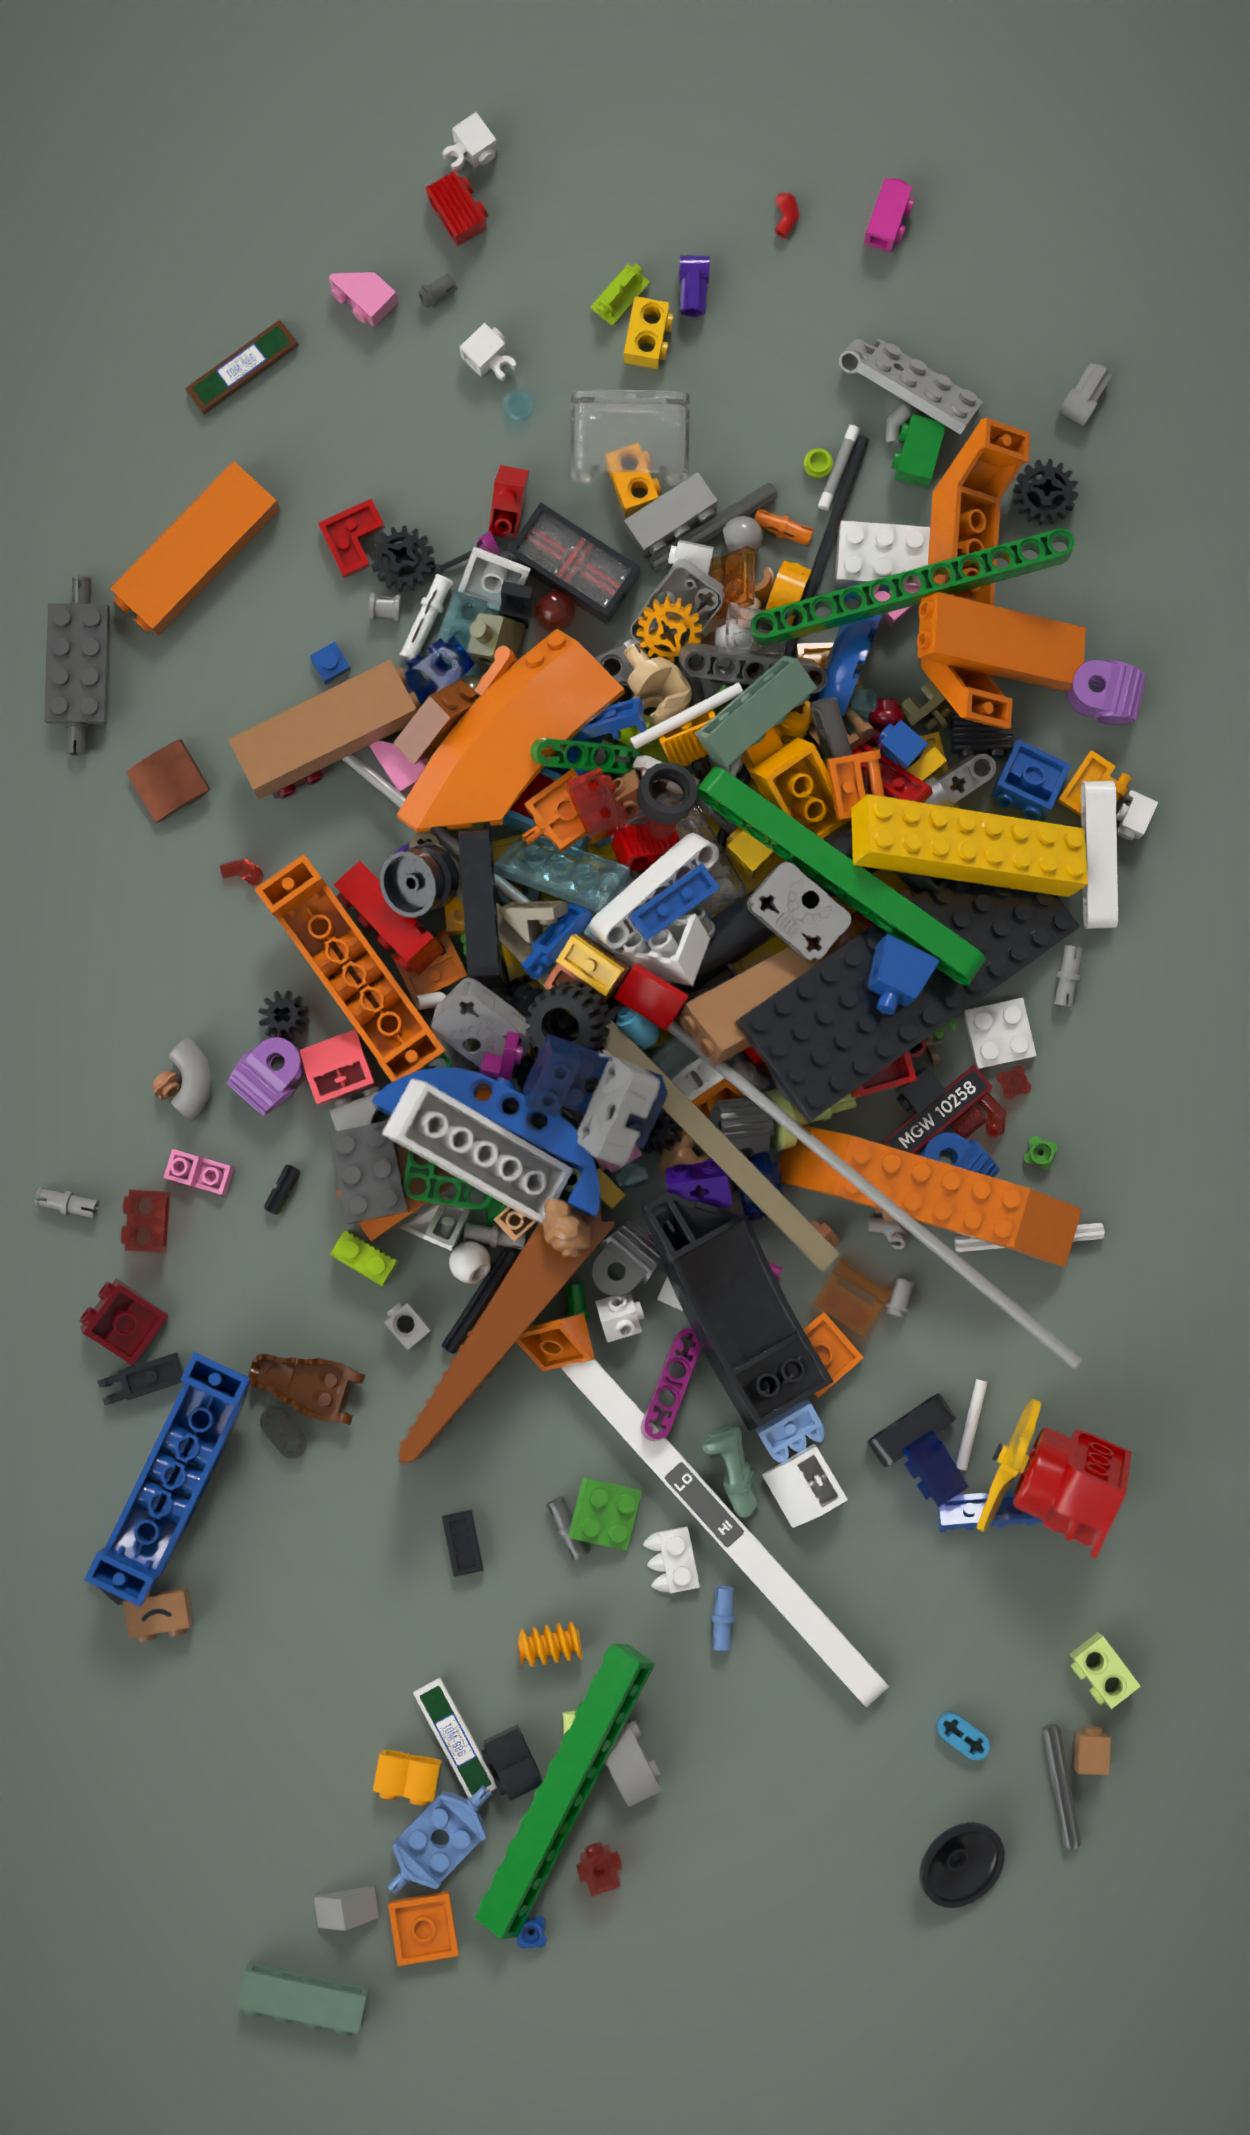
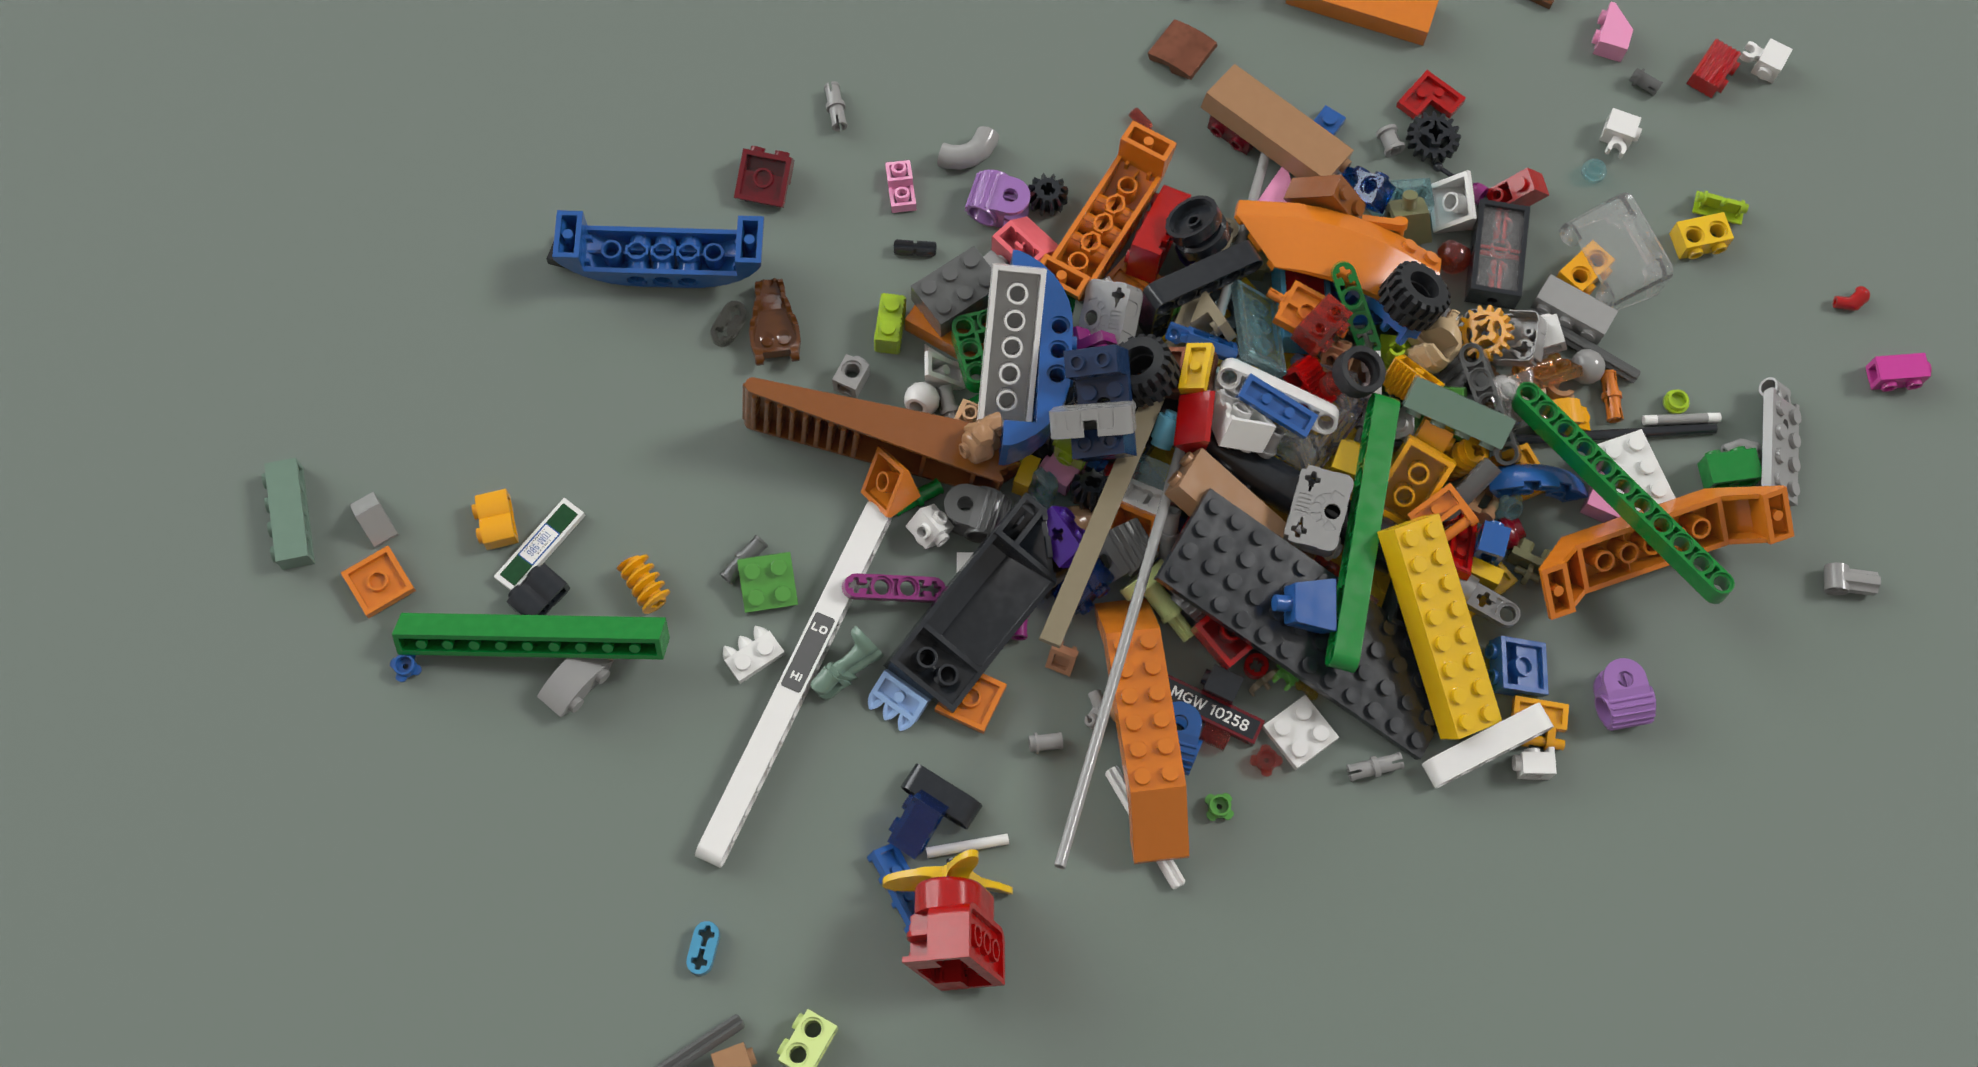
camera: 65 degrees right, 15 degrees down
(145, 1378) = (722, 205): black hinge -> none
(155, 1221) = (849, 169): clear red brick -> none
(160, 1613) = (552, 290): medium nougat brick -> none
(166, 1085) = (955, 135): nougat plate -> none
(429, 1862) = (437, 553): medium blue plate -> none
(430, 608) = (1404, 172): white pin -> none
(462, 1543) = (698, 486): black plate -> none
(516, 602) = (1445, 223): black slope -> none
(604, 1878) = (478, 694): clear red brick -> none
(605, 671) = (1414, 296): none -> black tyre
(686, 715) = (1425, 367): white bar -> none
(693, 280) = (1764, 251): dark purple piece -> none
(723, 1618) = (721, 709): medium blue pin -> none
(804, 1486) = (858, 728): white slope -> none
(846, 1306) = (1019, 700): clear orange plate -> none
(962, 1865) = (583, 998): black dish -> none
(973, 738) = (1534, 619): black brick -> none
(995, 1115) = (1232, 757): clear red arm -> none
(999, 641) = (1615, 582): orange brick -> none
(1034, 492) = (1754, 583): black gear -> none

